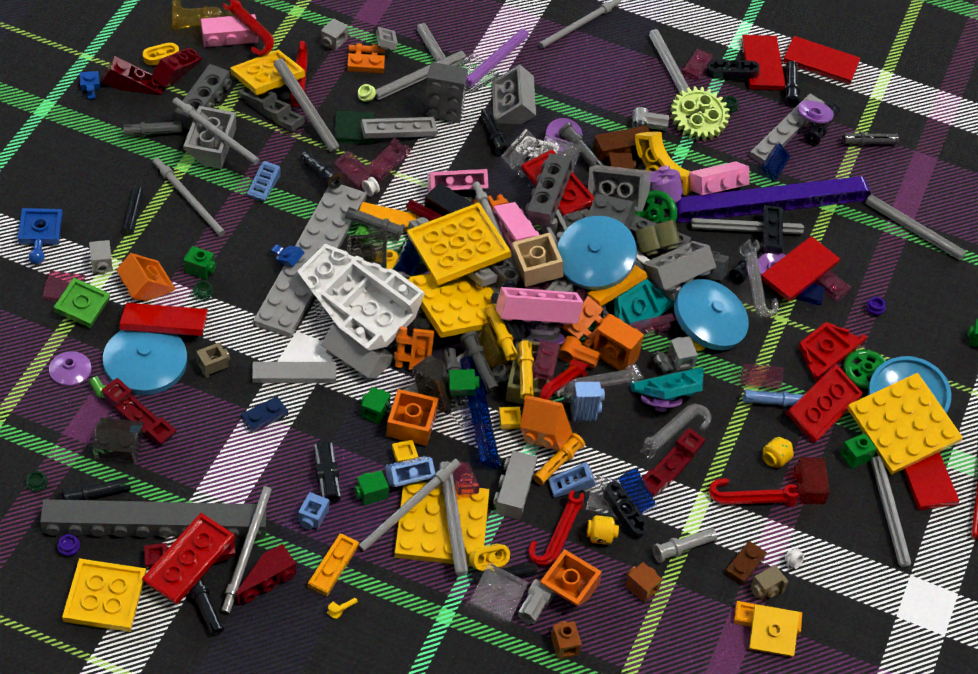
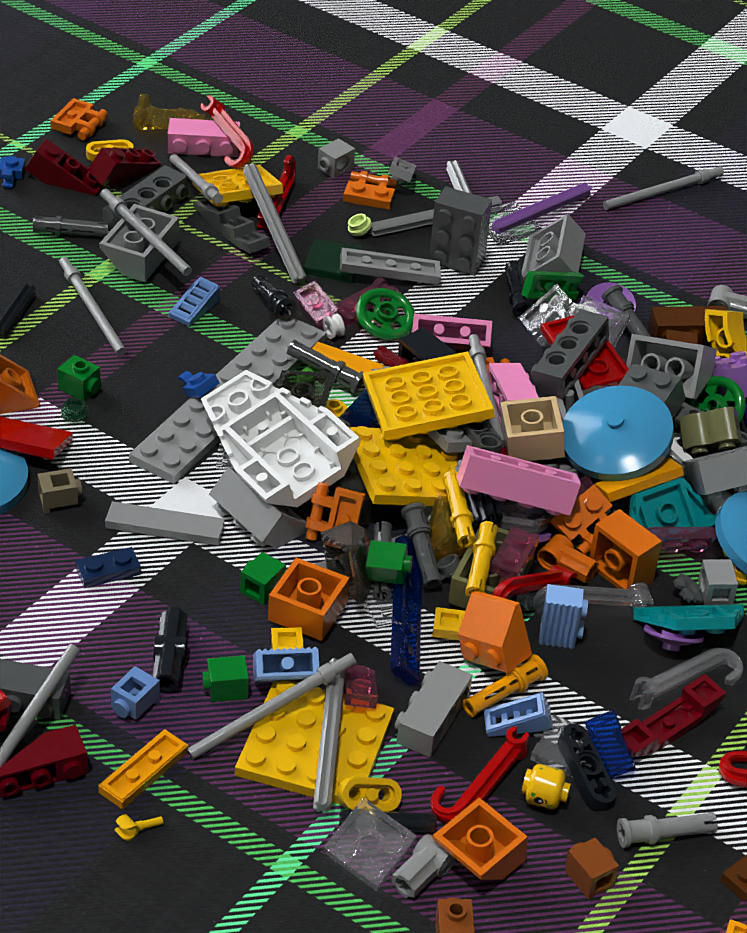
camera: 15 degrees right, 10 degrees down
(123, 24) = (74, 118): none -> orange plate
(252, 86) = (208, 189): none -> light grey bar
(408, 184) = (390, 310): none -> green plate
(513, 129) = (540, 282): none -> green plate

